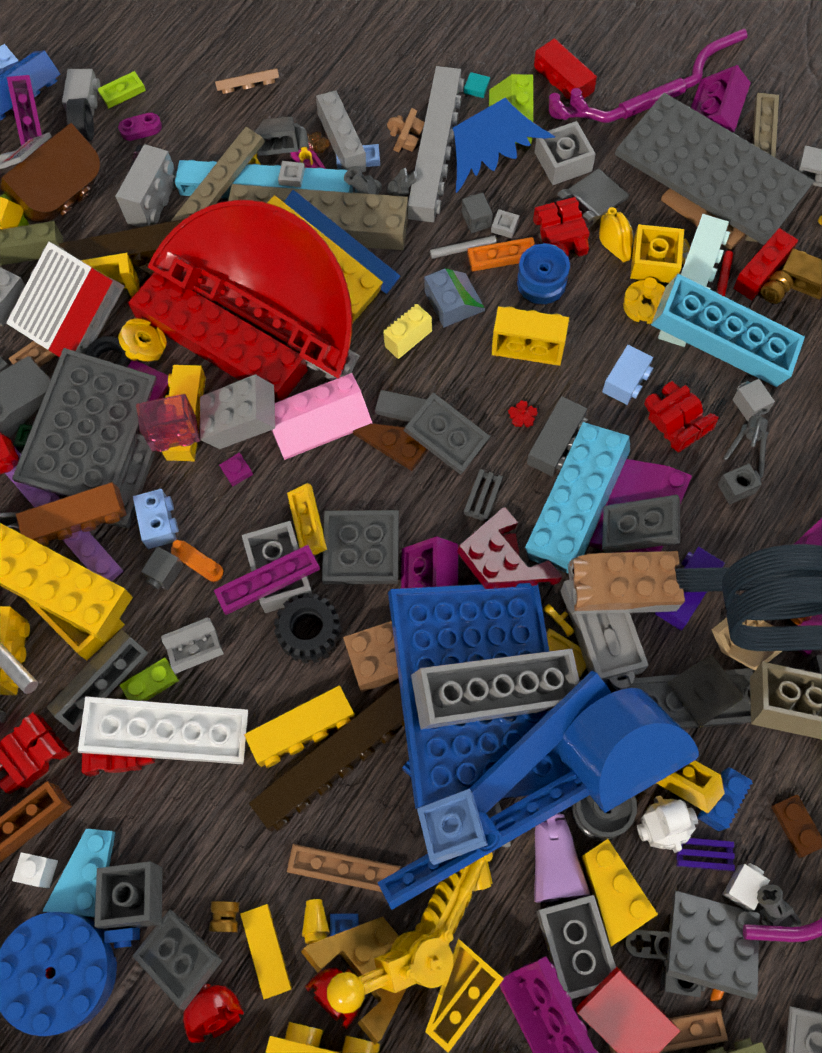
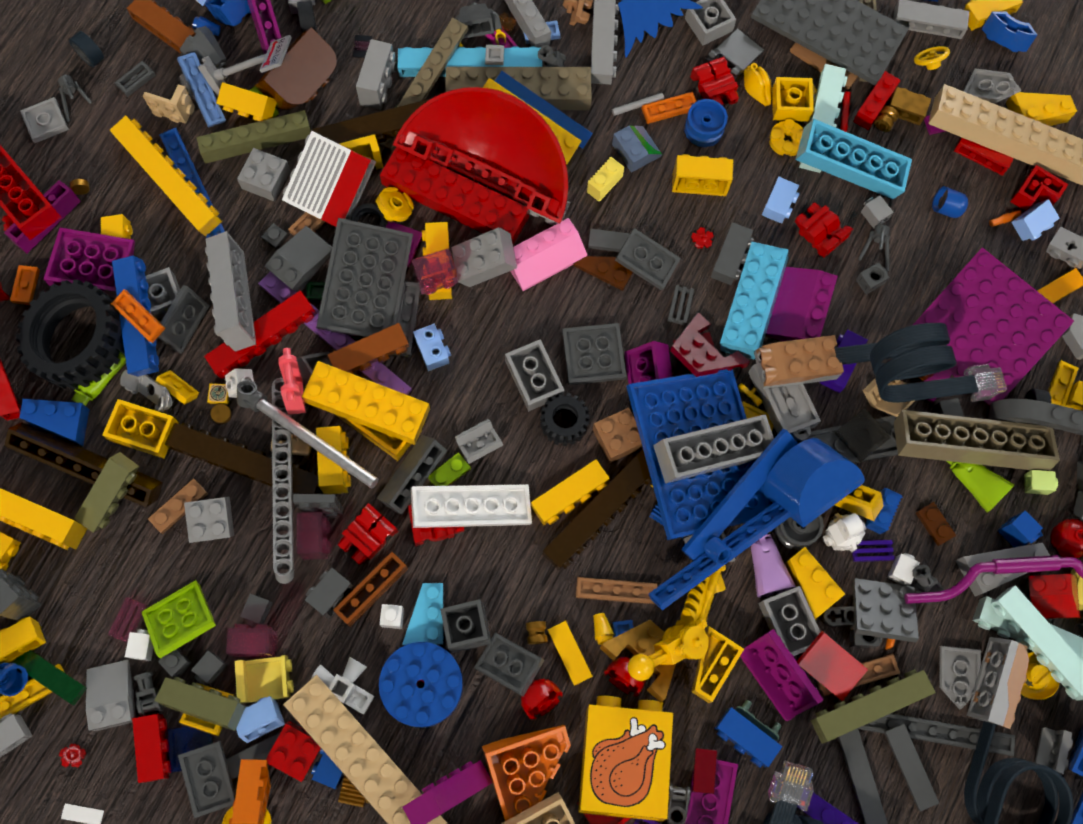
camera: 15 degrees left, 5 degrees up
(122, 937) = (464, 655): blue plate -> none
(140, 126) = (355, 18): magenta plate -> none
(162, 569) = (444, 386): dark grey brick -> none
(197, 560) = (468, 376): orange piece -> none
(236, 469) = (486, 302): magenta plate -> none
(266, 579) = (531, 386): magenta plate -> none
(306, 518) = (549, 336): yellow tile -> none
(401, 183) = (581, 56): dark grey plate -> none
(451, 827) = (697, 548): medium blue tile -> none
(477, 212) = (645, 74): dark grey brick -> none
(505, 223) = (669, 82): light grey plate -> none
(641, 524) = (804, 316): dark grey tile -> none

